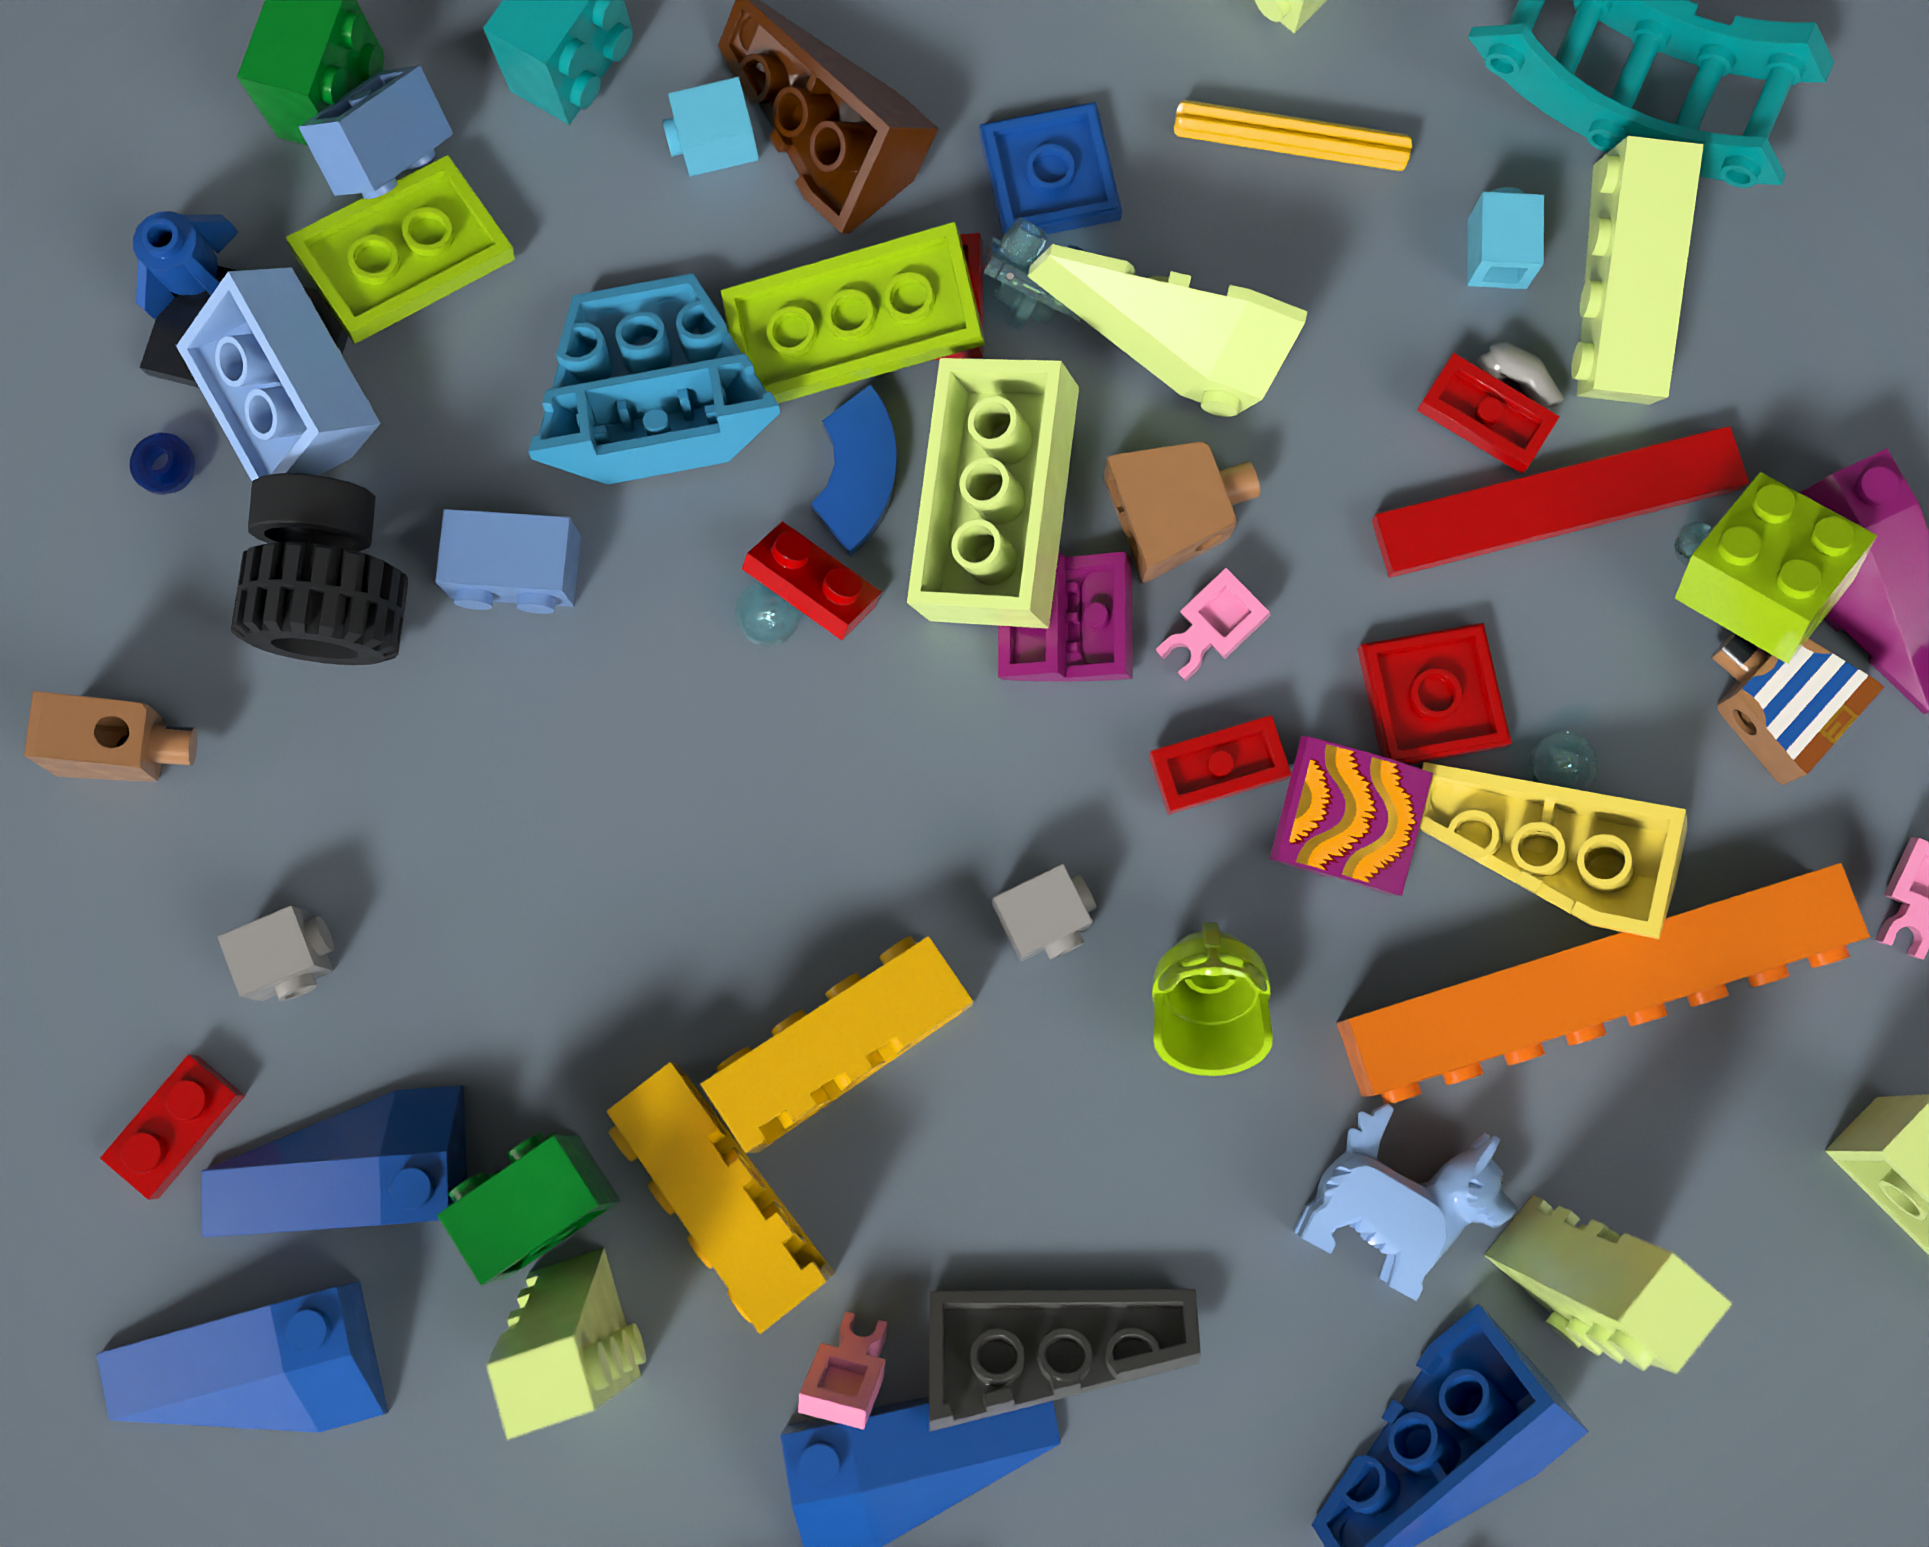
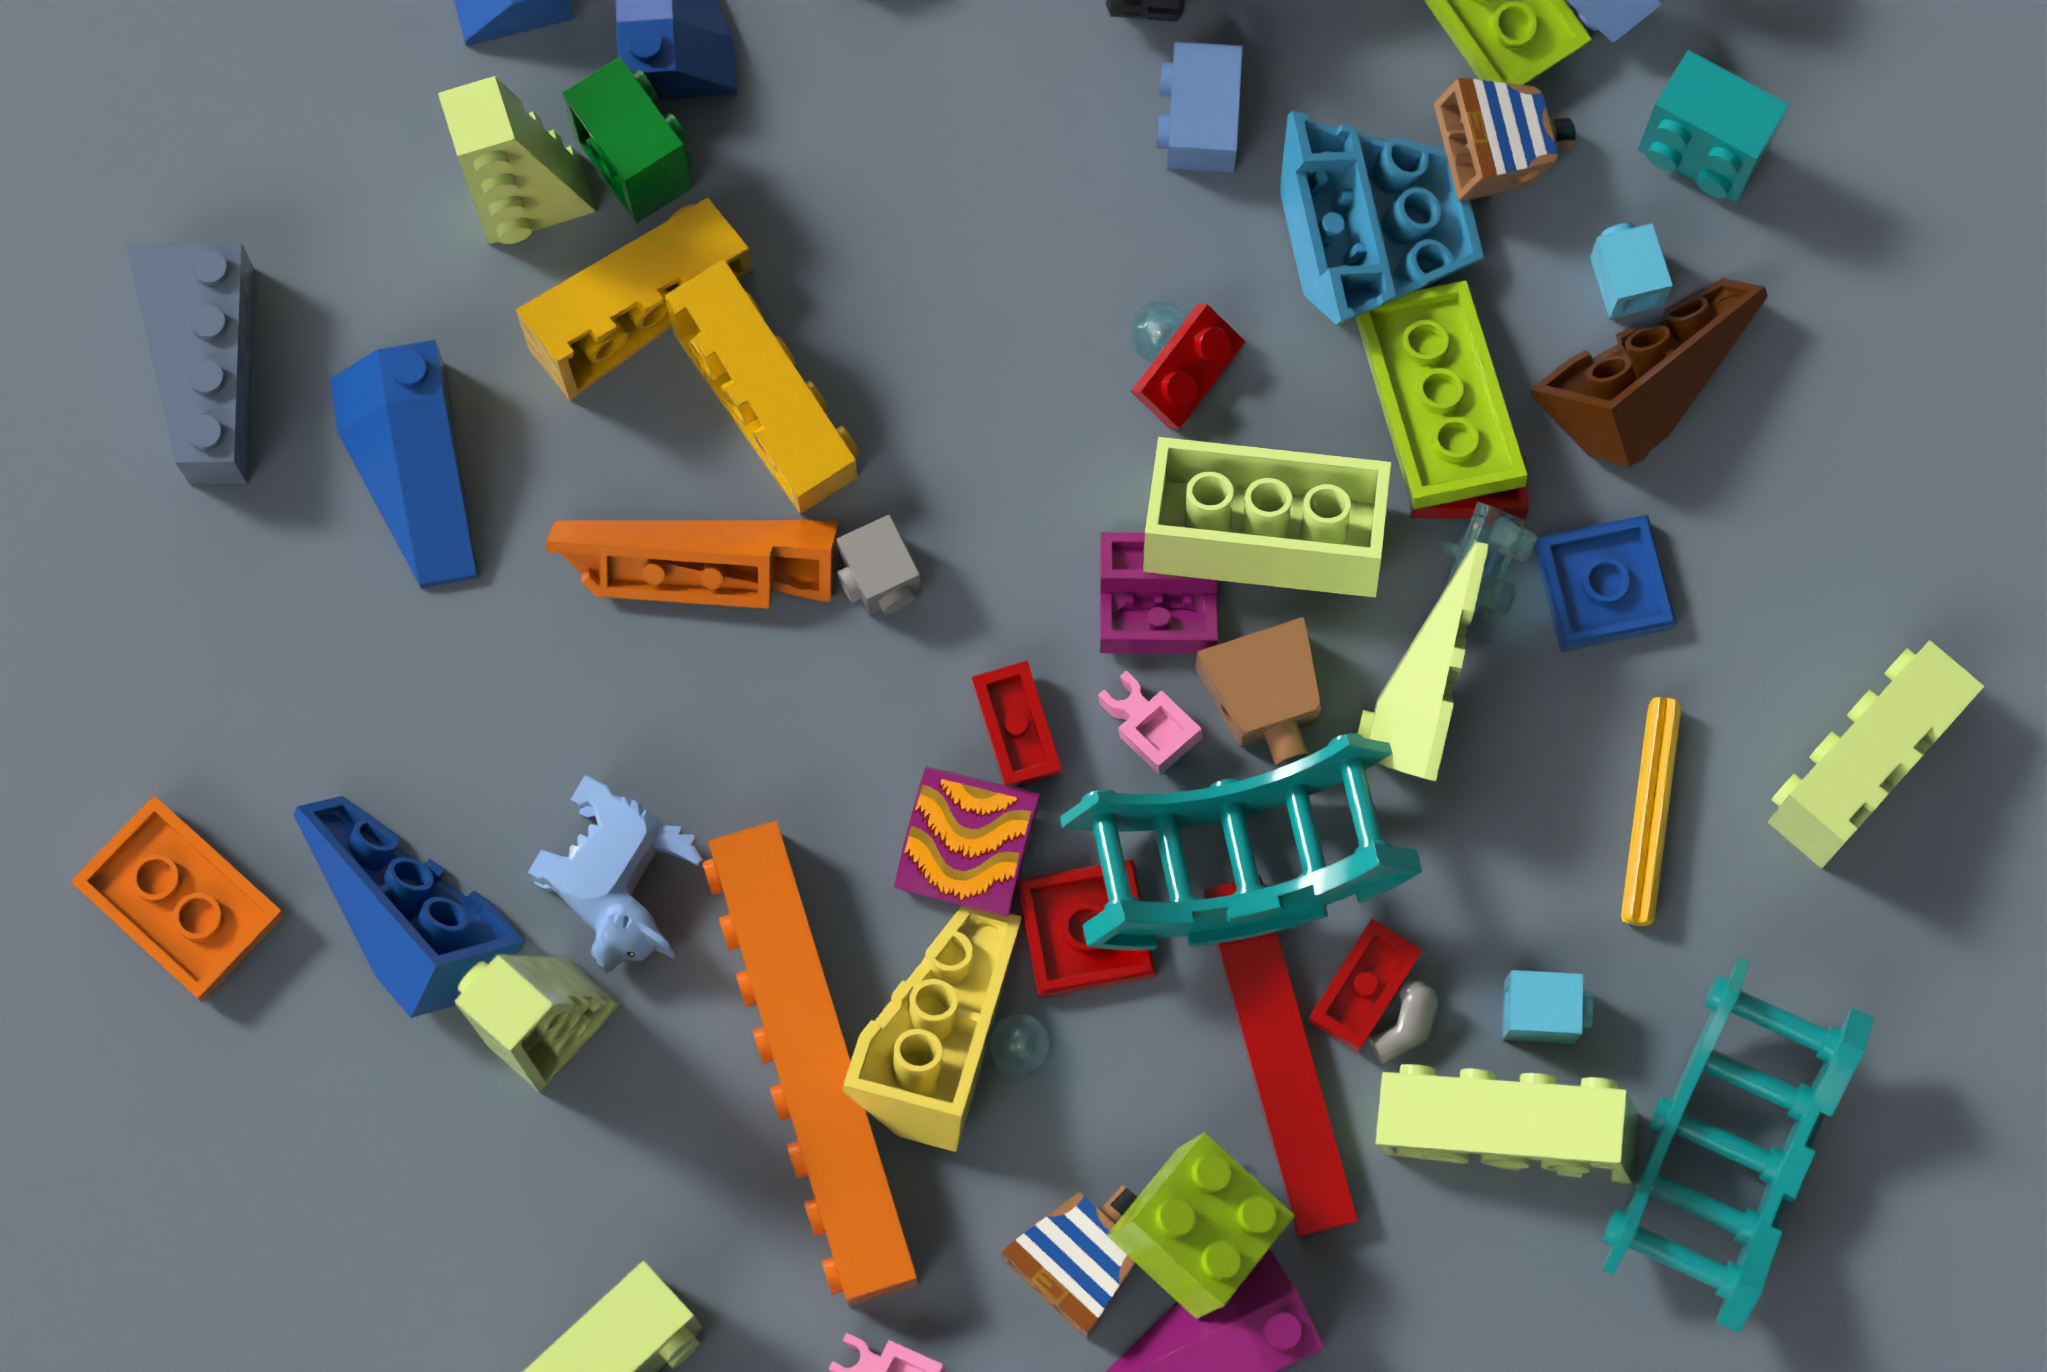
camera: 90 degrees right, 5 degrees down
(558, 250) = (1498, 136): none -> torso
(846, 1377) = (478, 396): bright pink plate -> none
(862, 470) = (1298, 412): blue tile -> none
(1029, 1117) = (701, 559): none -> orange wedge
(1044, 1345) = (498, 546): dark grey wing -> none
(1211, 1004) = (794, 702): lime helmet -> none
(1422, 515) = (1253, 908): none -> teal fence

